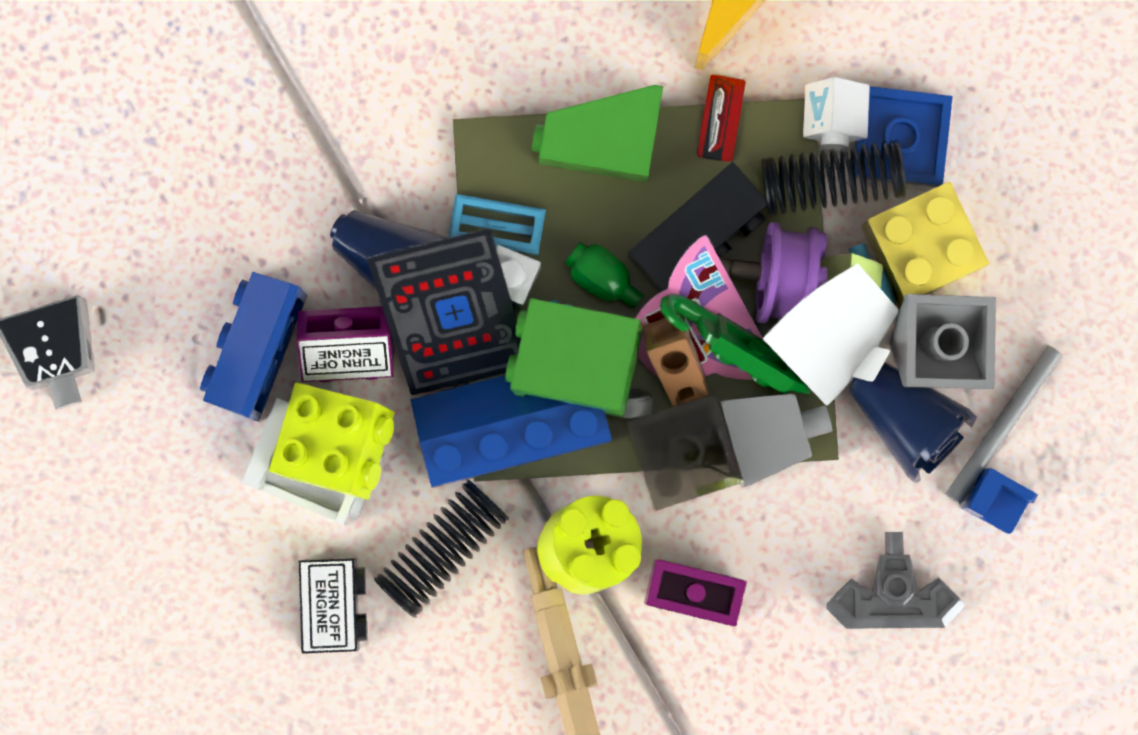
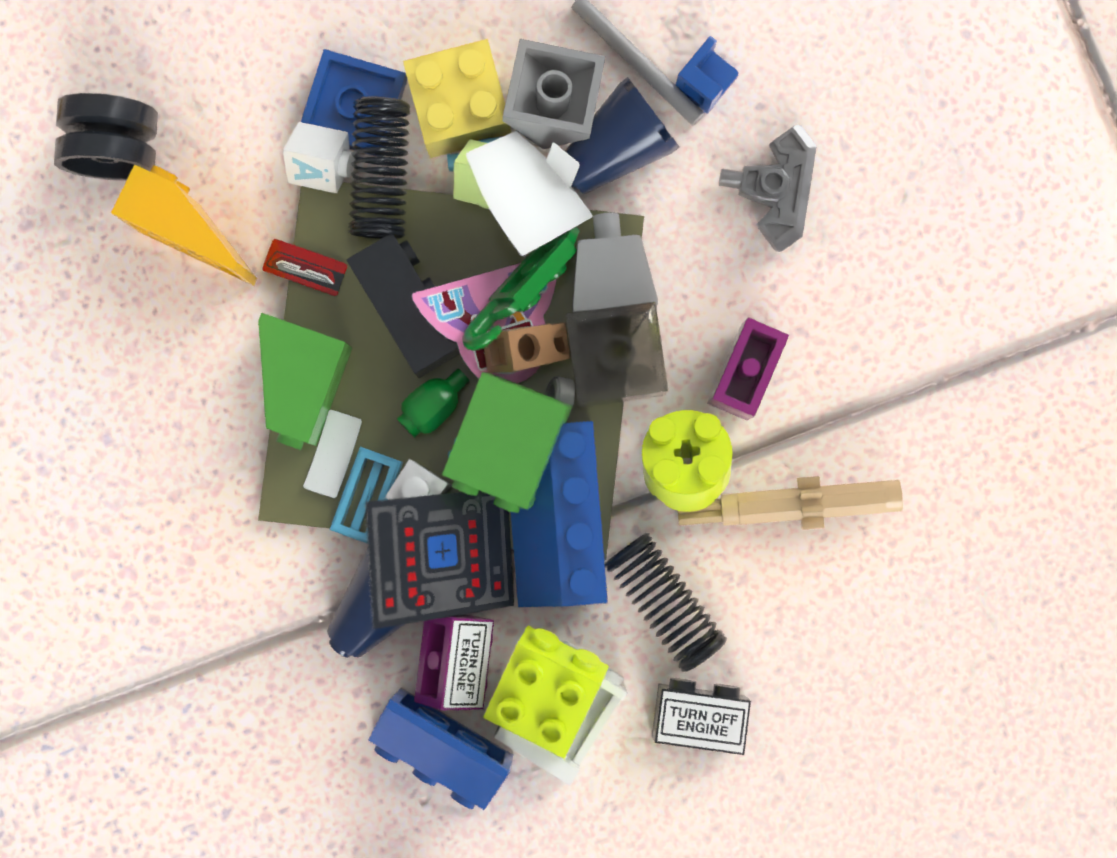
camera: 70 degrees left, 0 degrees up
(533, 183) = (333, 454): none -> white sticker
(785, 272) = (460, 228): medium lavender wheel -> none

